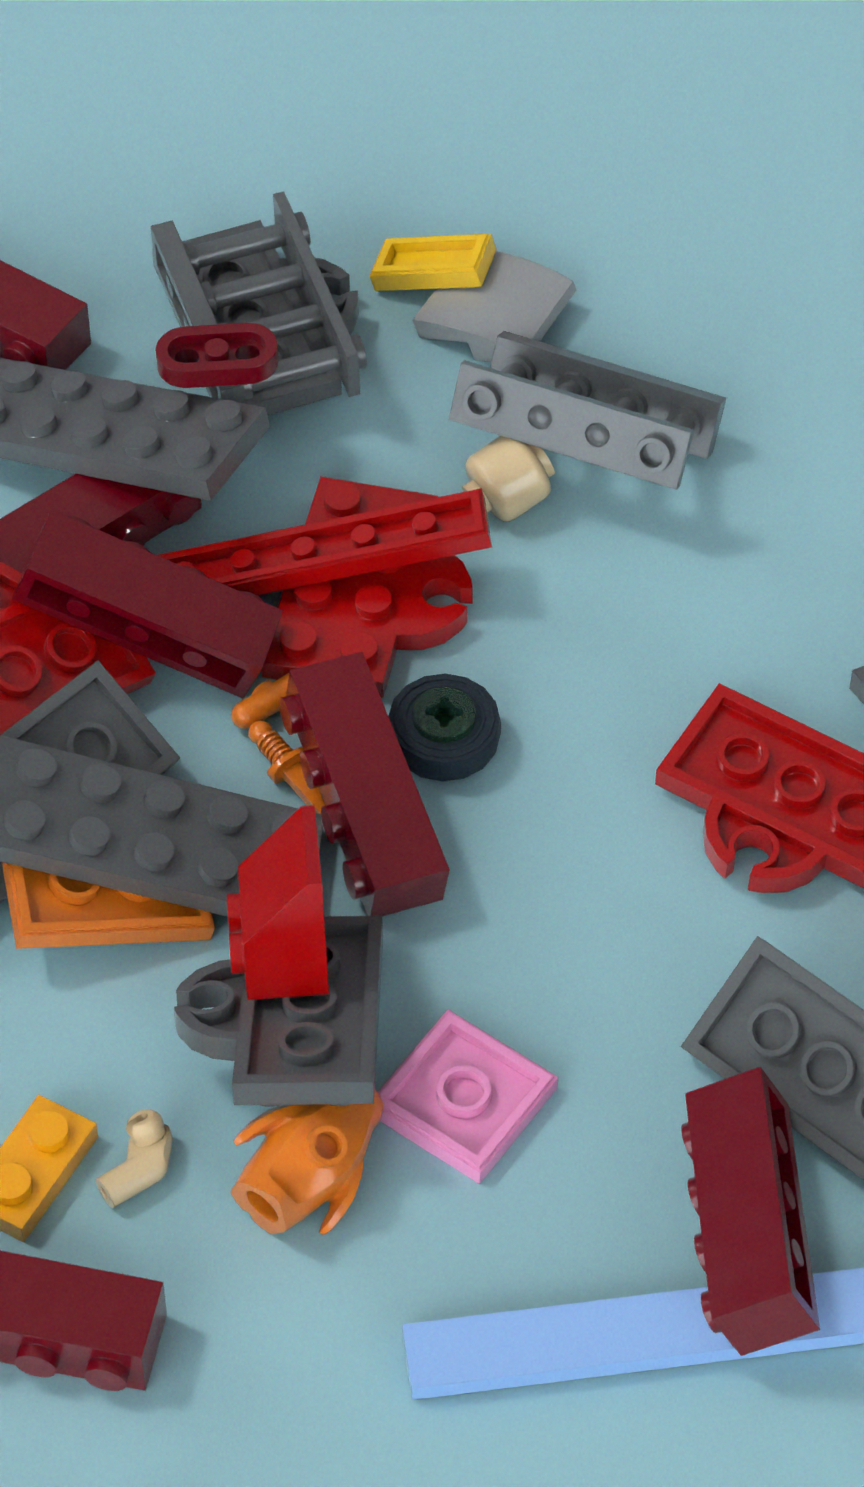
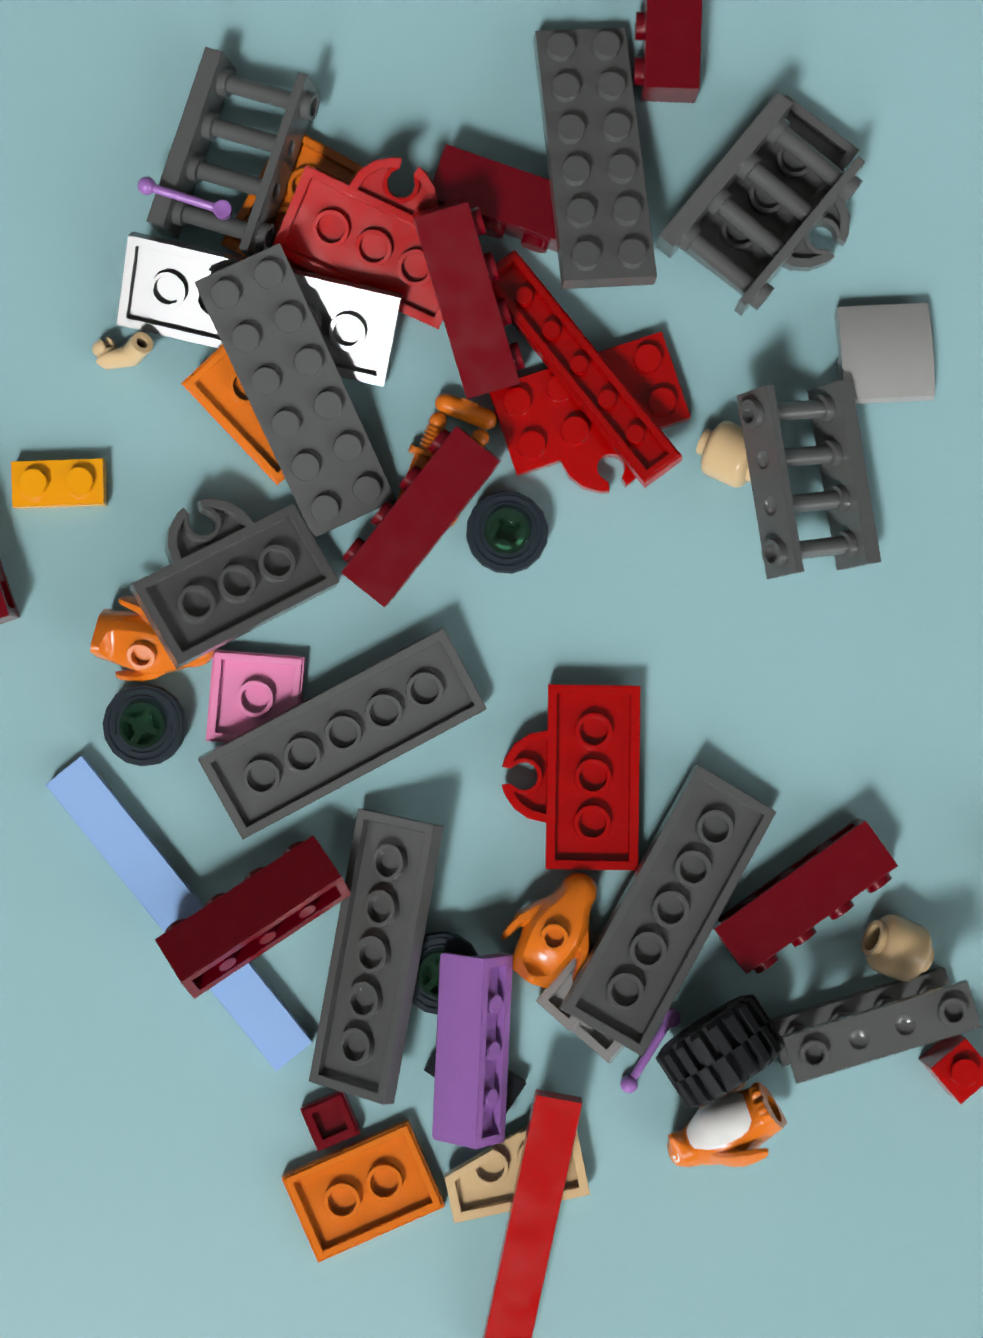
camera: 60 degrees right, 35 degrees up
(145, 1161) = (99, 546): tan arm -> none
(217, 355) = (678, 218): dark red plate -> none
(280, 914) = (273, 535): red slope -> none
(420, 1203) = (129, 718): none -> black wheel
(433, 262) = (894, 290): yellow tile -> none
(573, 1016) = (342, 733): none -> dark grey plate

